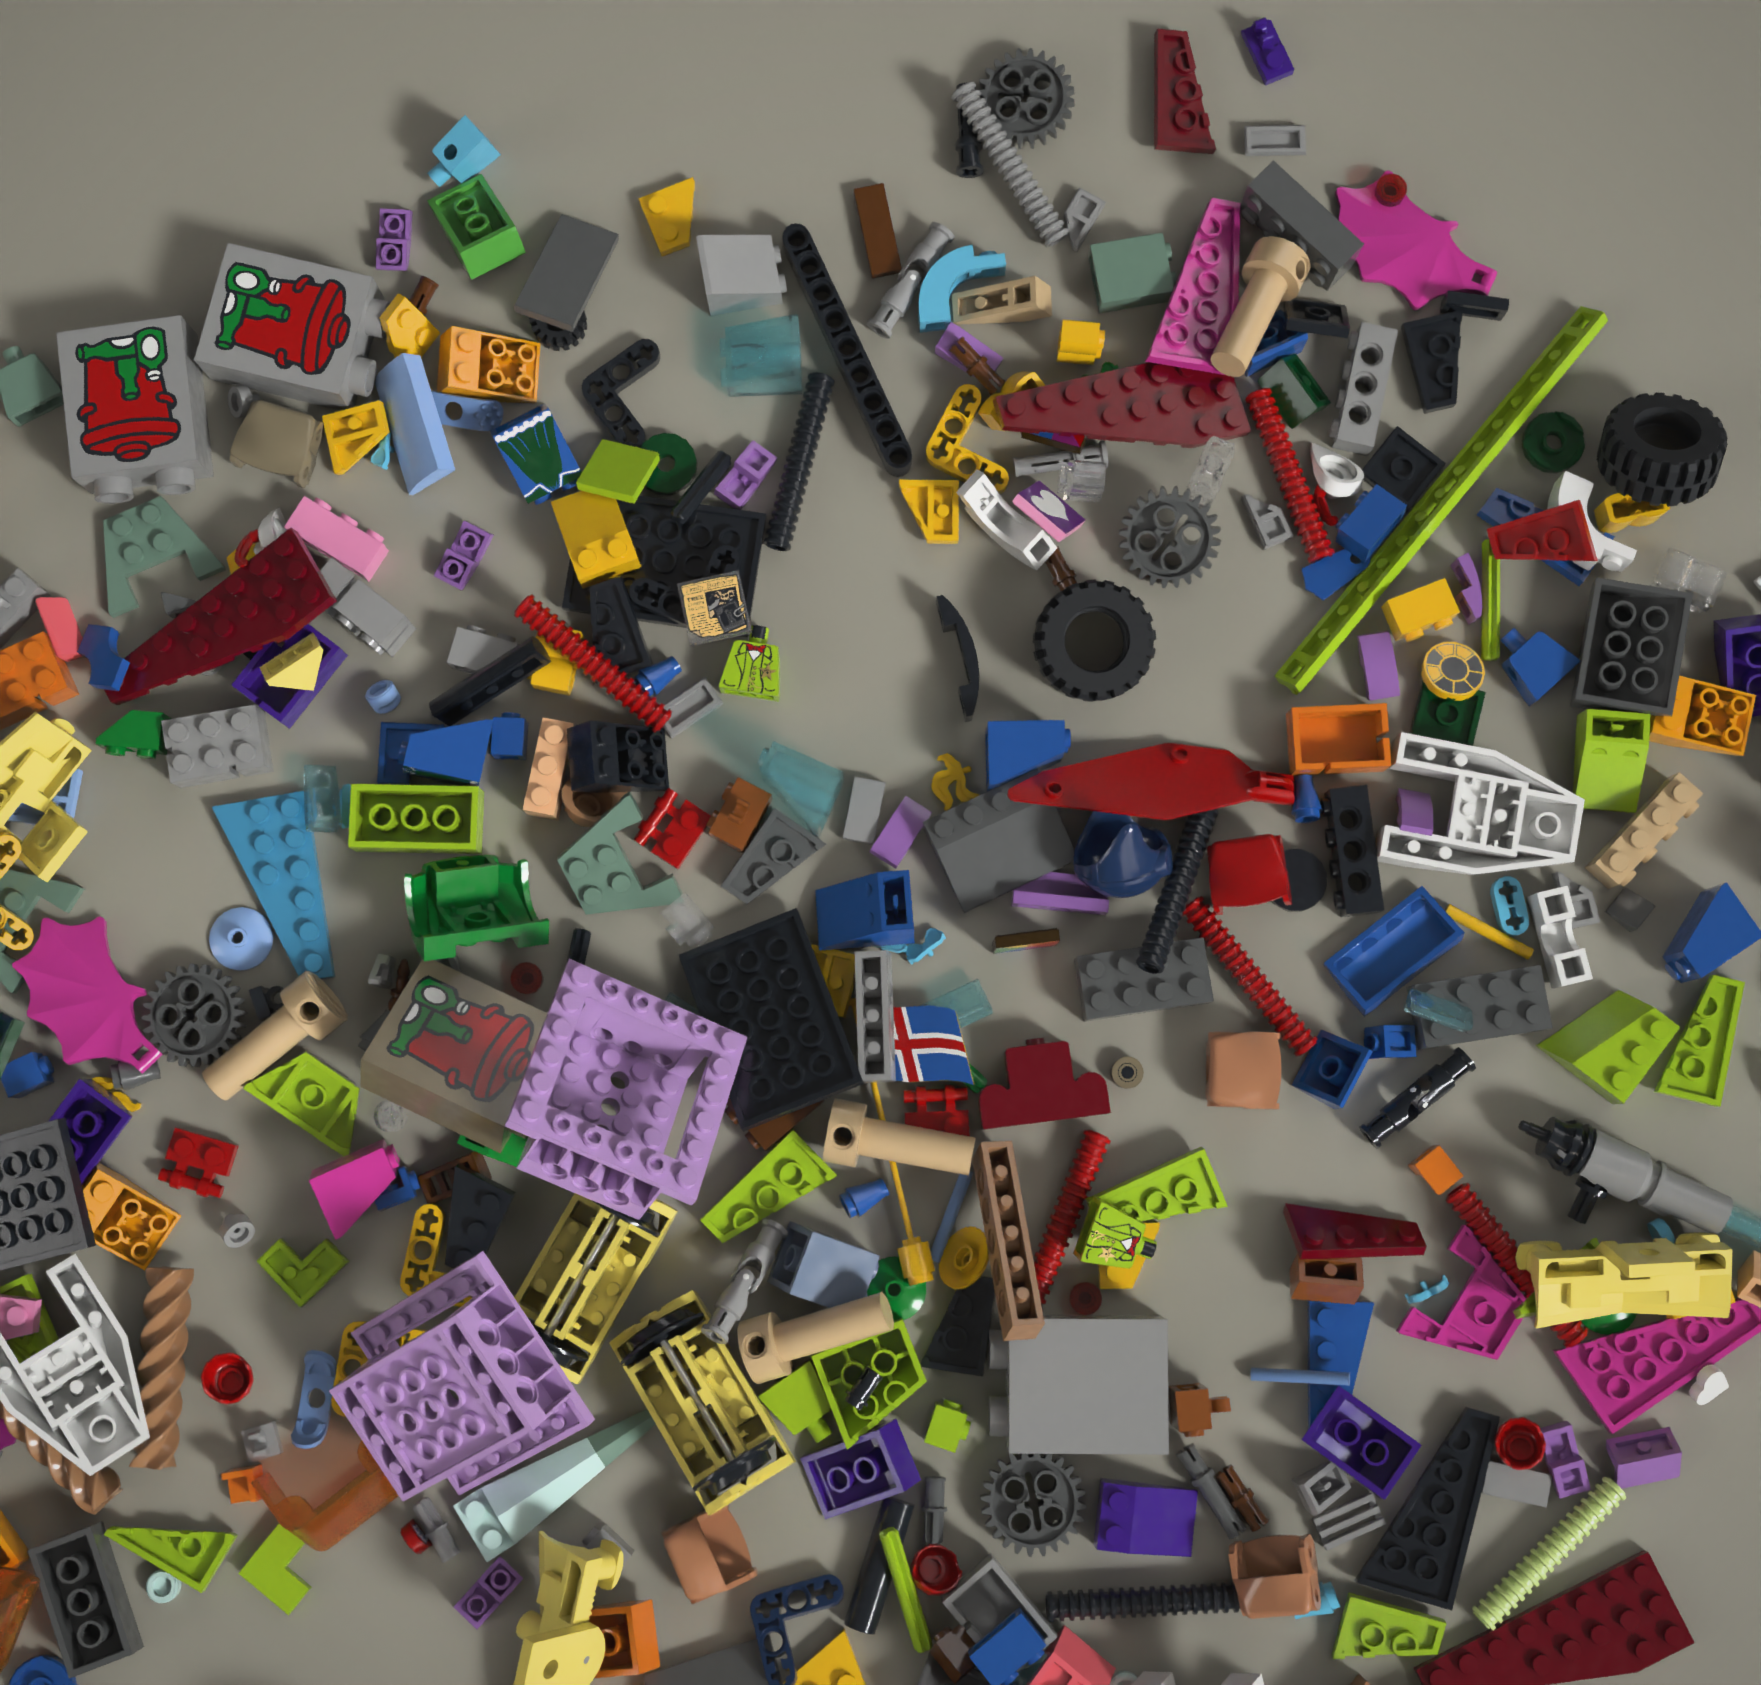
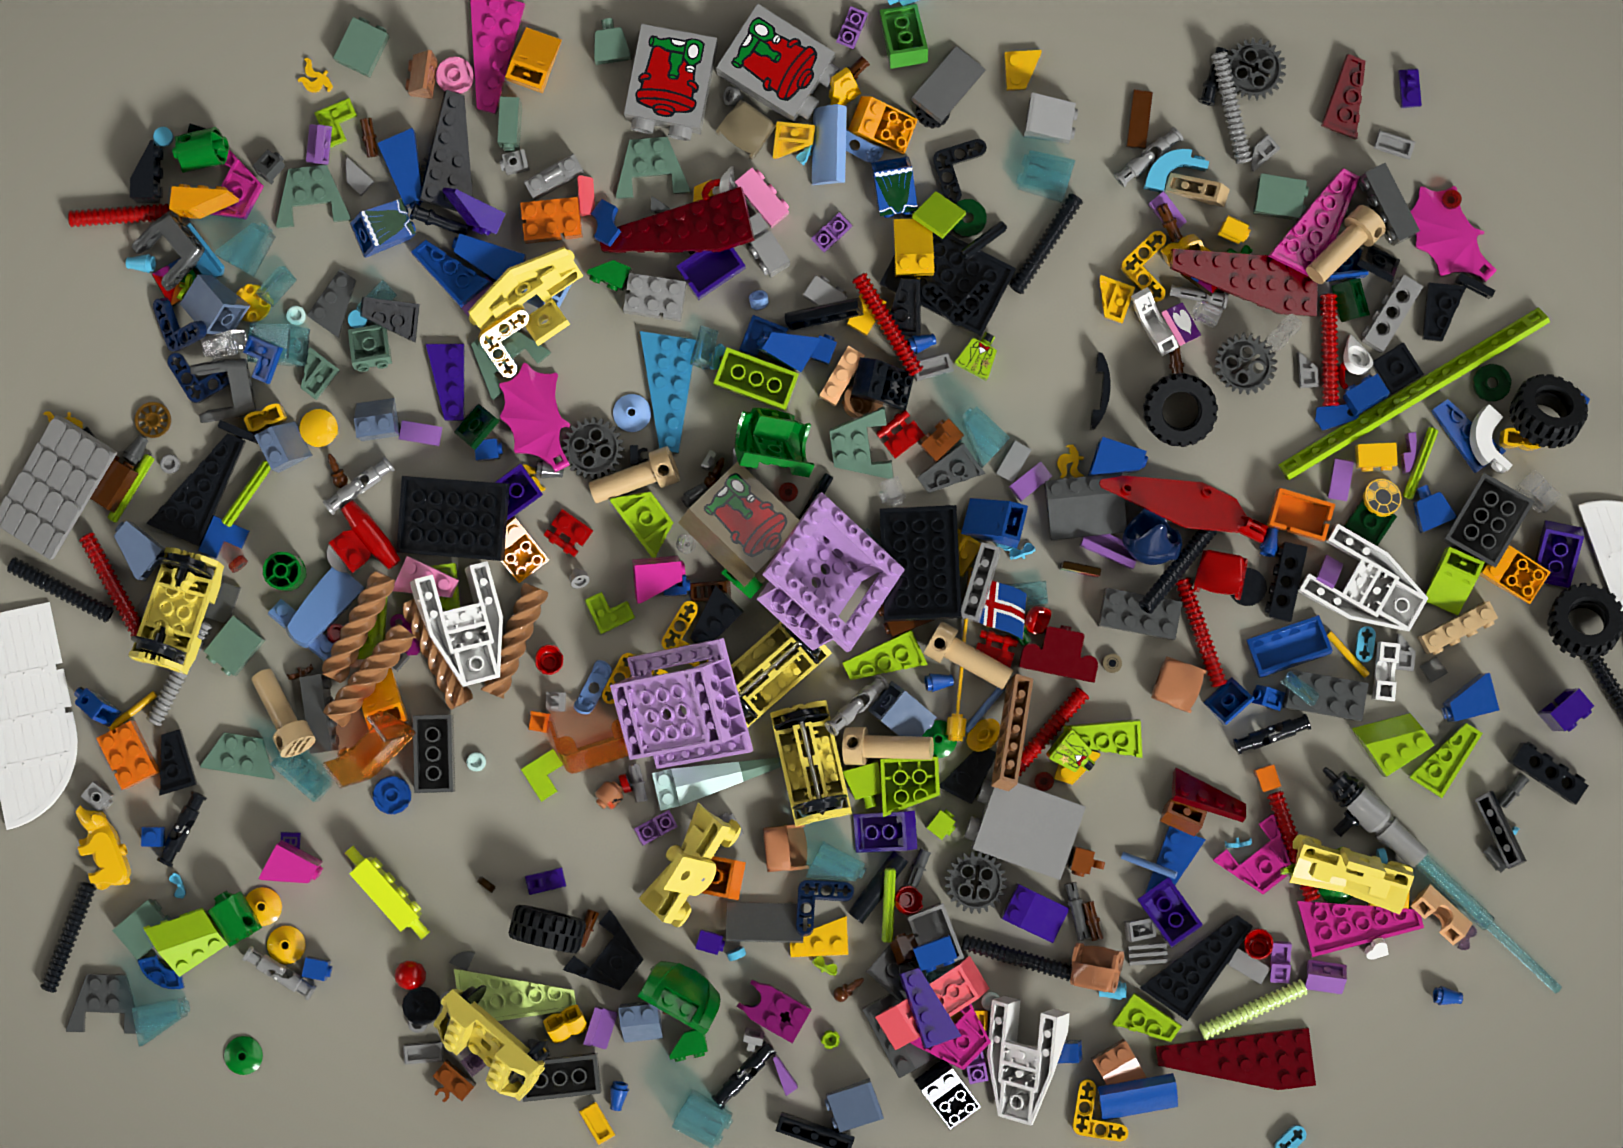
camera: 15 degrees right, 5 degrees up
(184, 1554) = (495, 749): lime wing -> none
(295, 666) = (717, 268): light yellow slope -> none
(395, 1566) = (609, 795): none -> nougat head
(714, 608) = (968, 316): tile -> none
(745, 476) = (1011, 241): medium lavender slope -> none
(797, 1555) = (835, 864): none -> clear light blue slope
(846, 335) = (1098, 158): black beam -> none
(863, 1388) = (903, 786): black pin -> none
(986, 1044) = (1037, 619): none -> red hair
(1546, 535) = (1465, 439): red wing -> none

